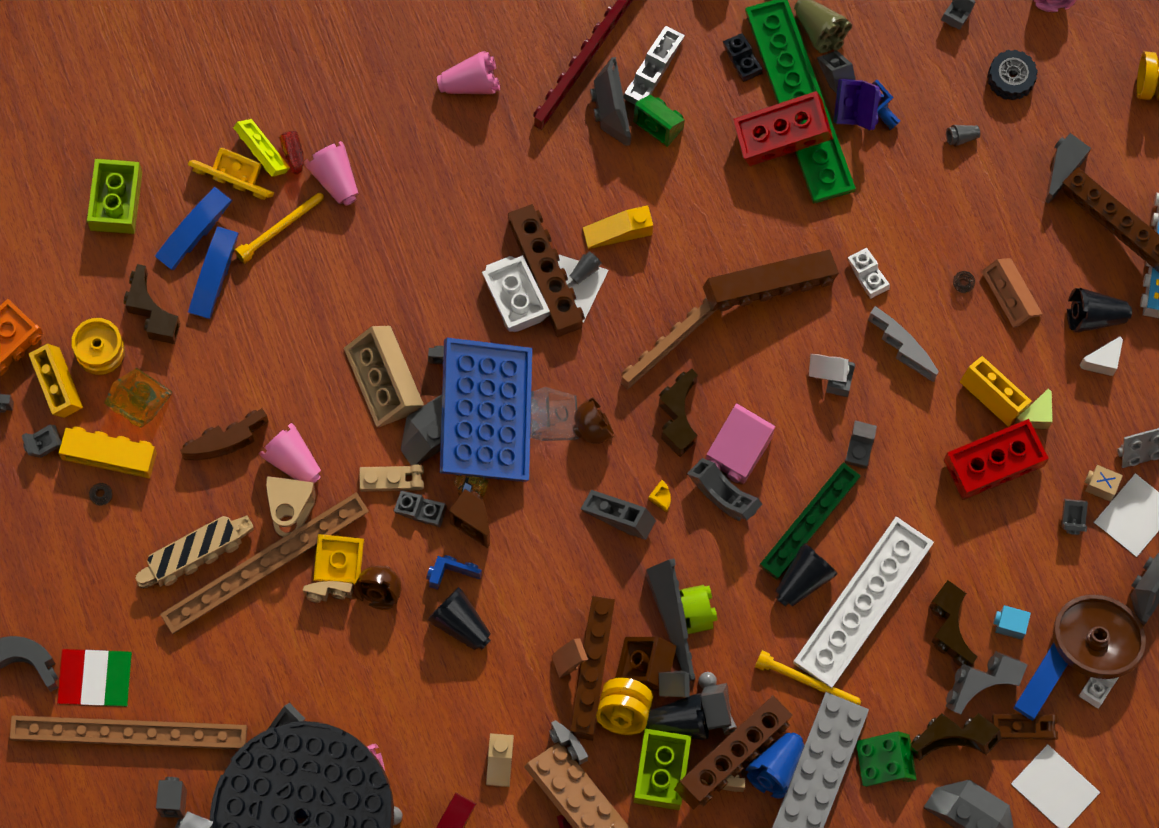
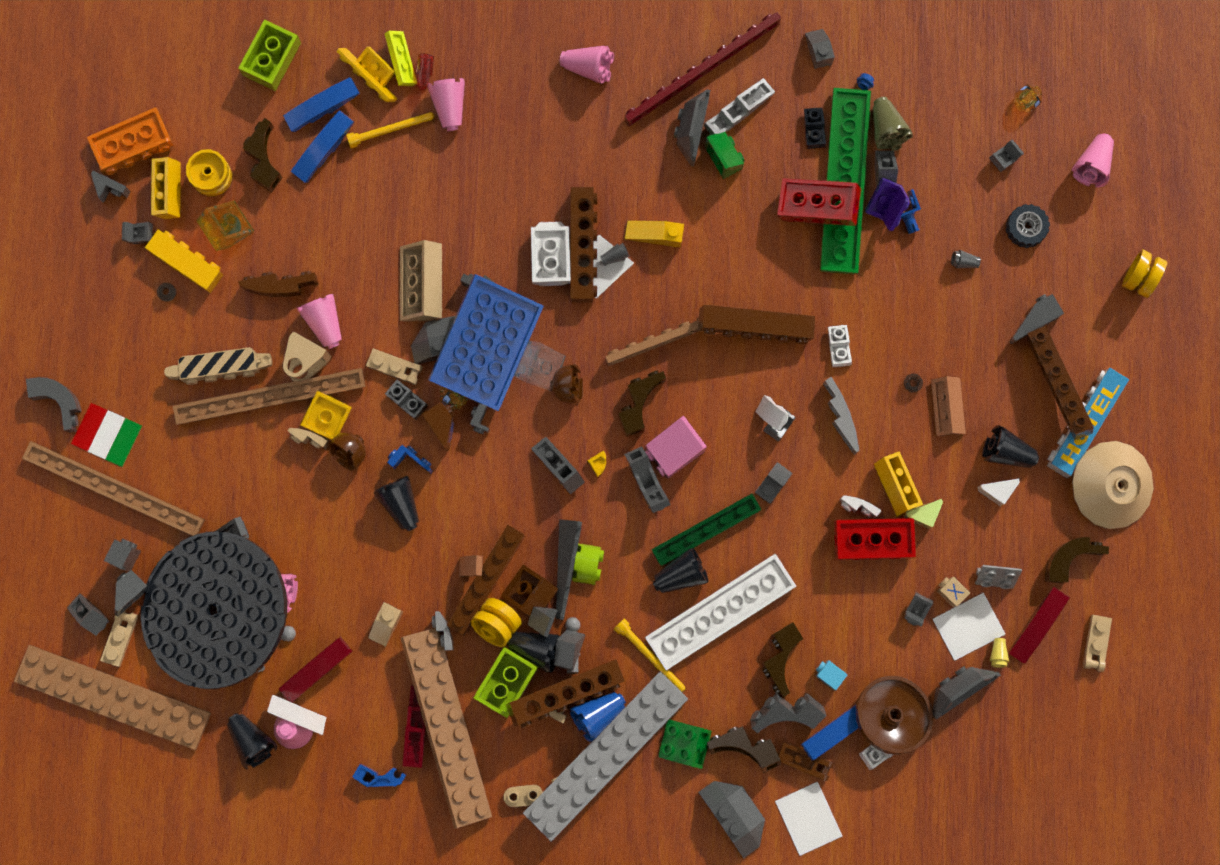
camera: 25 degrees right, 10 degrees up
(507, 493) = (478, 414): none -> dark grey bracket
(955, 431) = (852, 503): none -> white slope

